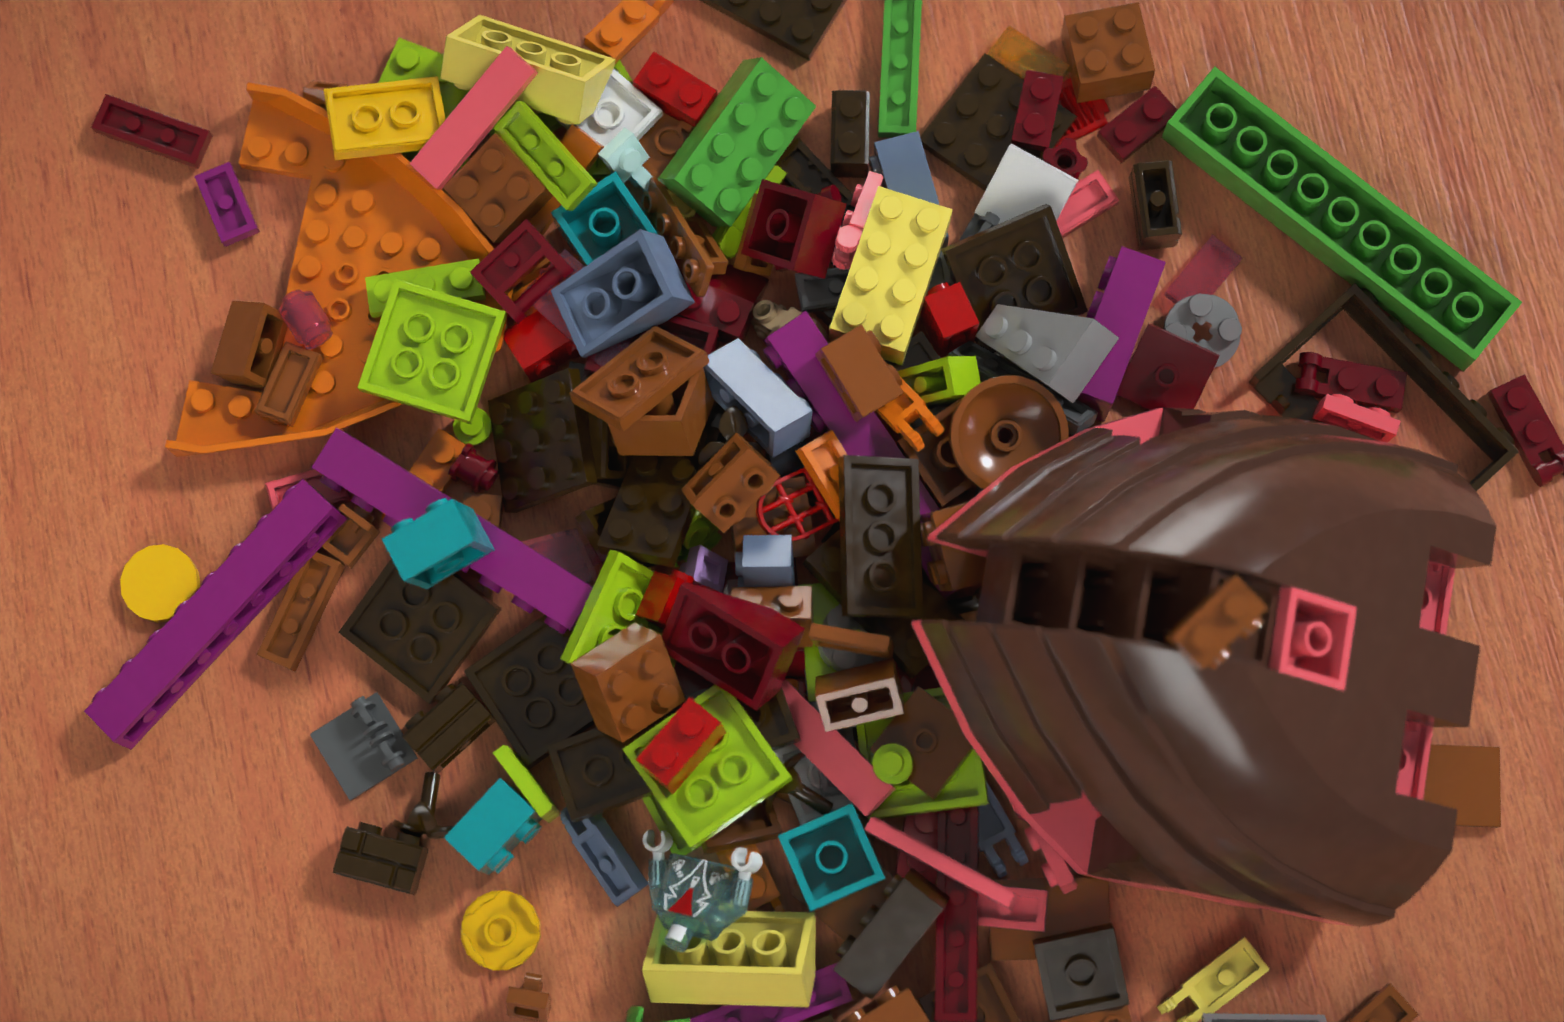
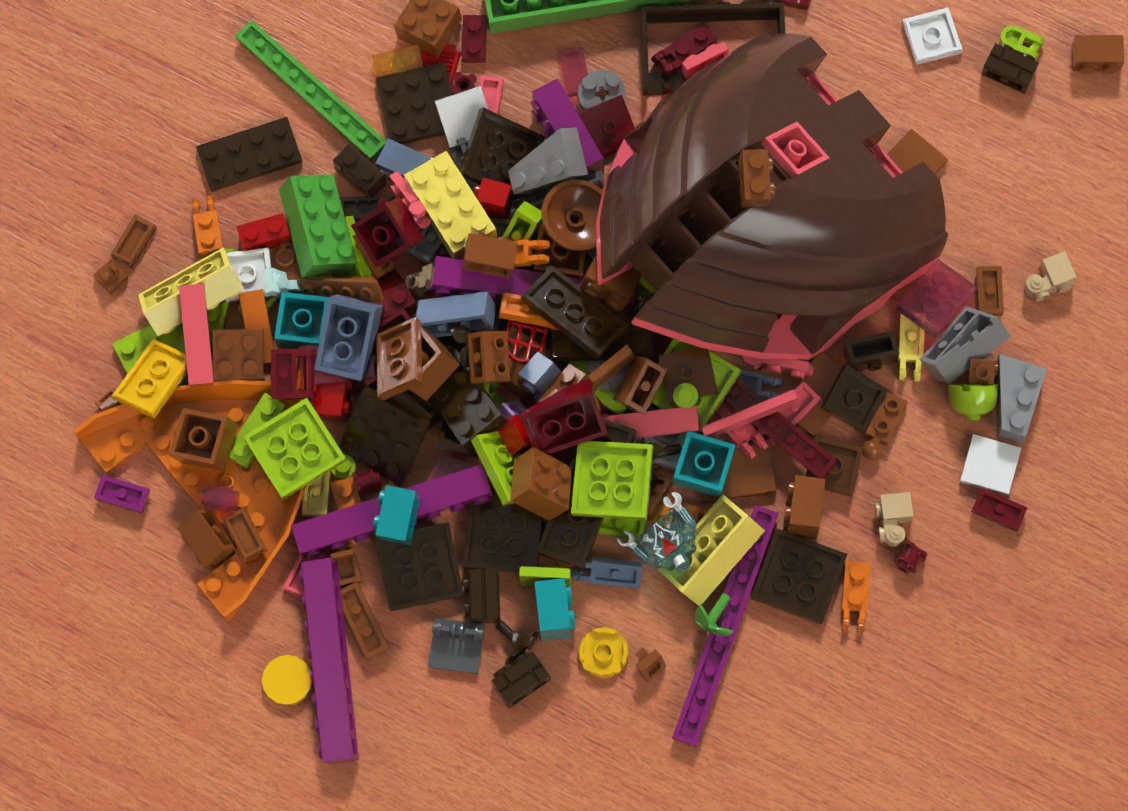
camera: 50 degrees left, 5 degrees down
(152, 131) = (50, 501): dark red plate -> none
(355, 238) = (203, 439): none -> dark orange brick
(407, 429) = (317, 497): none -> light yellow hinge
(545, 155) = (245, 316): lime plate -> none
(681, 745) = (594, 480): red brick -> none
(890, 932) = (762, 465): dark brown brick -> none
(1037, 110) = (427, 77): dark red plate -> none
(1155, 205) = (522, 63): dark brown brick -> none
(1159, 944) = (872, 351): none -> dark brown brick
(1302, 967) = (936, 298): none -> clear pink plate

